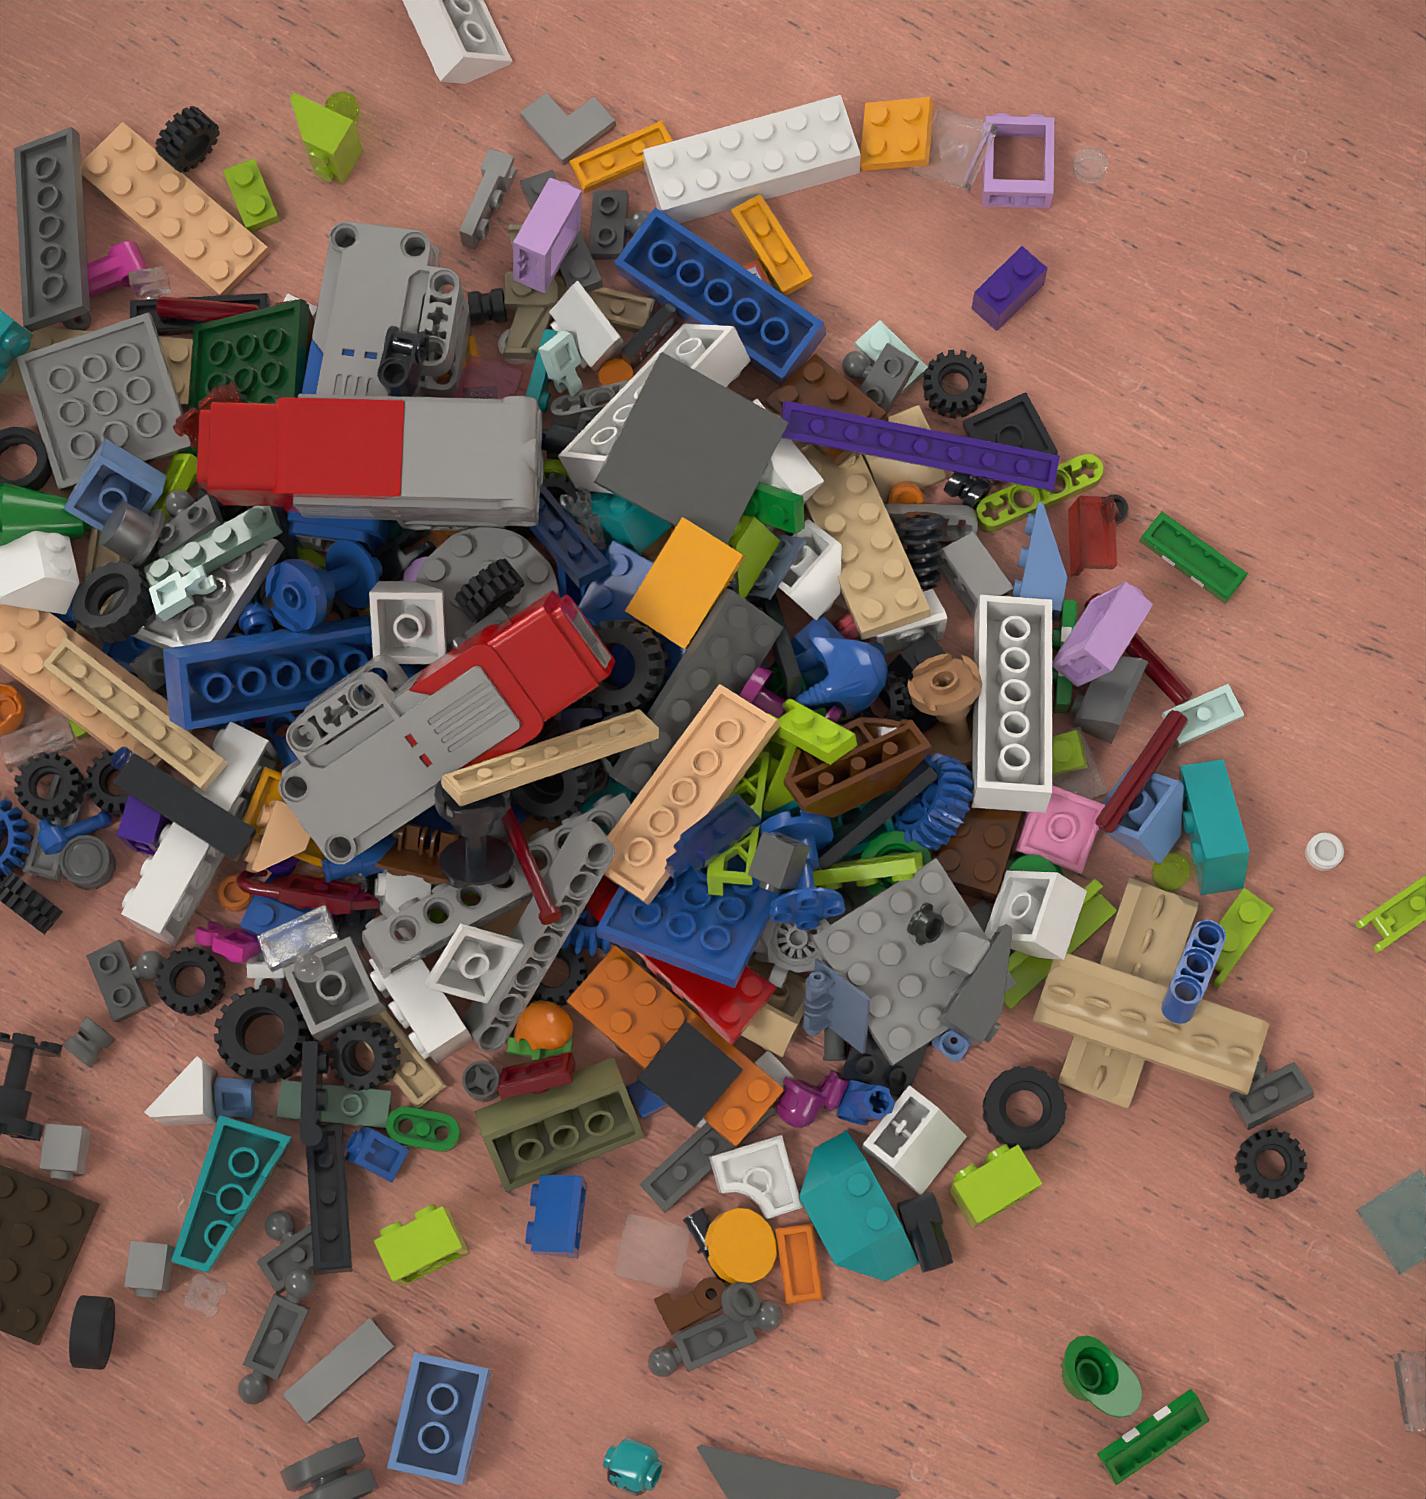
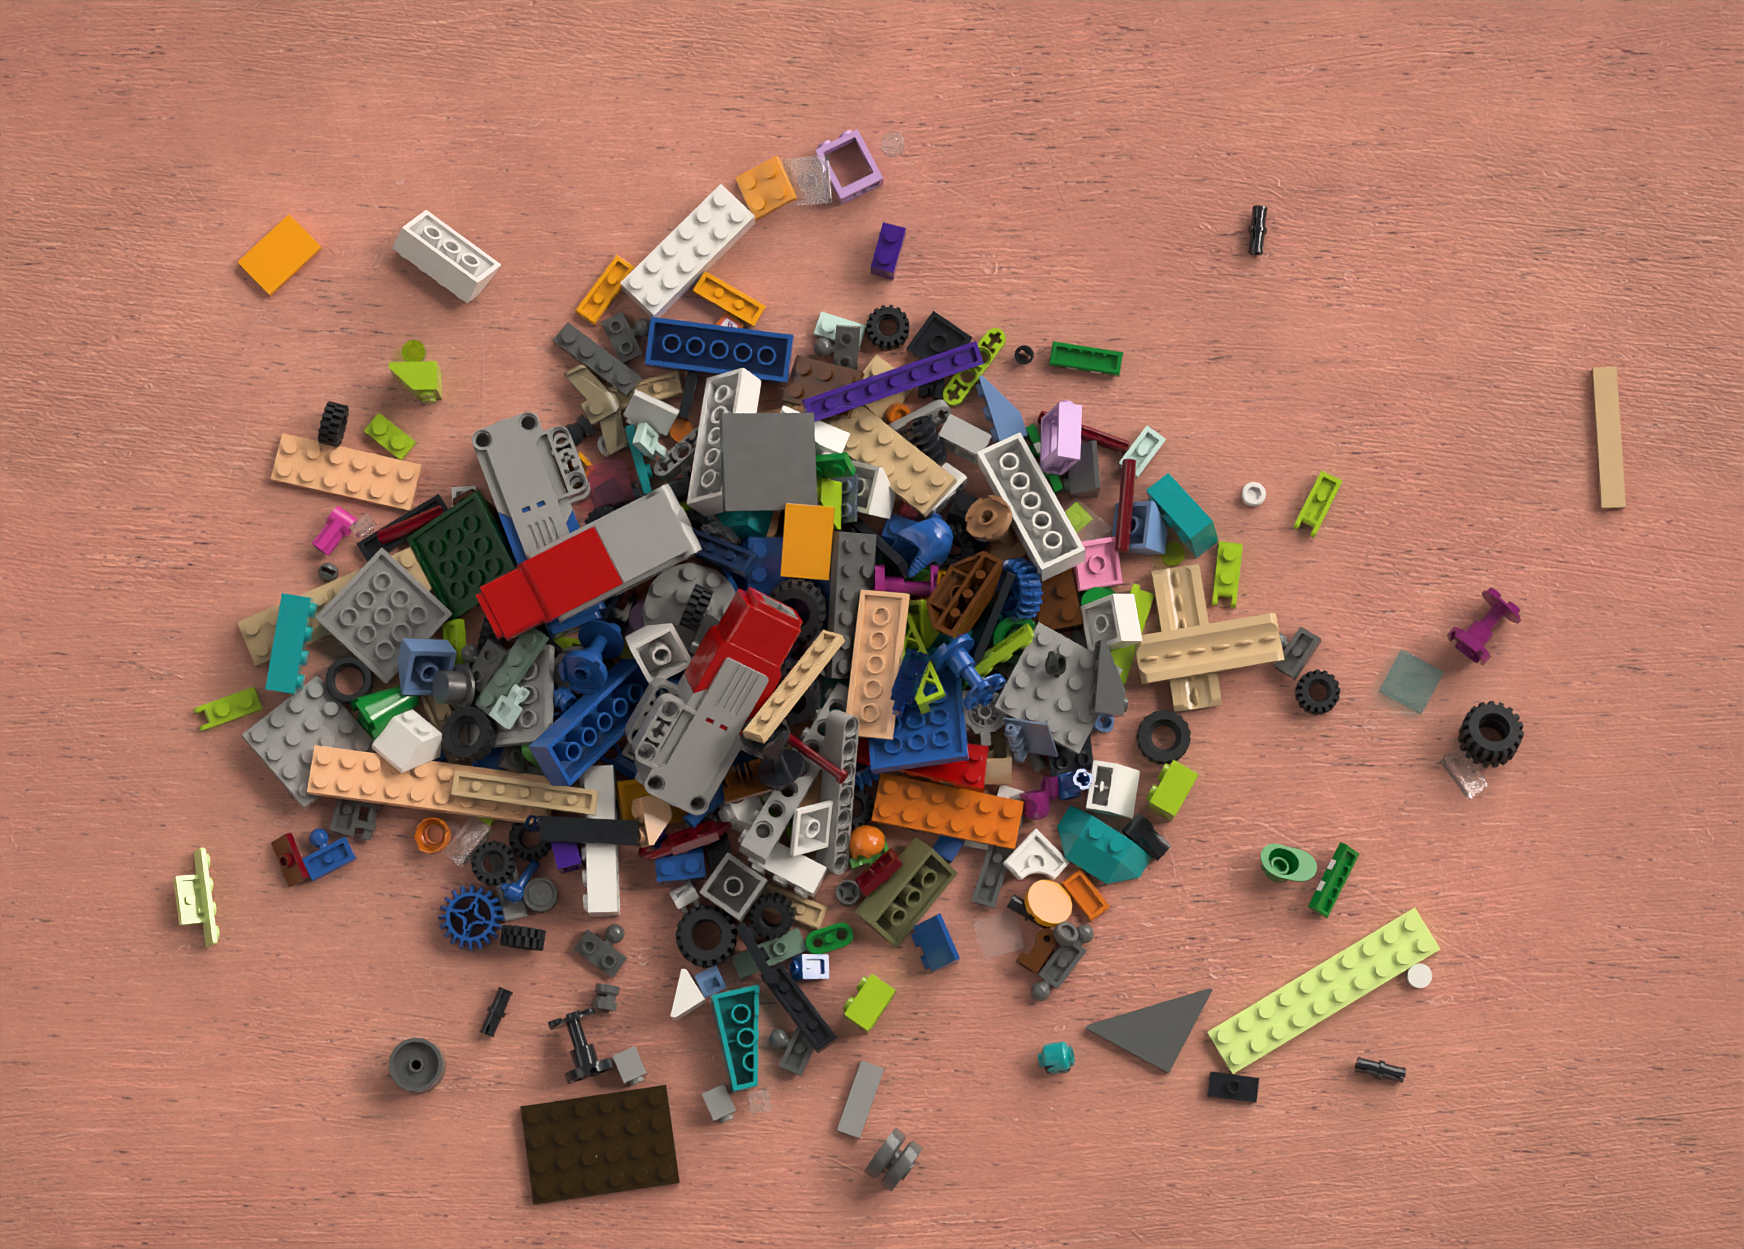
camera: 35 degrees left, 5 degrees up
(51, 230) = (284, 526): dark grey plate -> none
(92, 1332) = (710, 1156): black tyre -> none
(174, 965) = (643, 945): black tyre -> none
(189, 422) = (457, 589): clear red hinge -> none
(231, 896) = (636, 866): orange tile -> none
(234, 943) = (656, 894): dark pink plate -> none
(276, 1336) = (814, 1100): dark grey plate -> none
(298, 941) = (701, 870): clear plate -> none
(404, 354) = (562, 493): black piece -> none
(440, 1419) = (935, 1092): medium blue brick -> none
(497, 176) = (536, 344): light grey plate -> none
(547, 235) = (597, 369): lavender window -> none
(566, 134) = (561, 294): light grey tile -> none
(690, 1074) = (967, 822): black tile -> none
(778, 861) = (954, 674): dark grey brick -> none
(814, 733) = (931, 588): lime hinge -> none
(965, 953) = (1086, 668): light grey slope -> none
(1092, 534) = (1020, 378): clear red panel -> none
(1193, 971) = (1217, 616): blue beam -> none

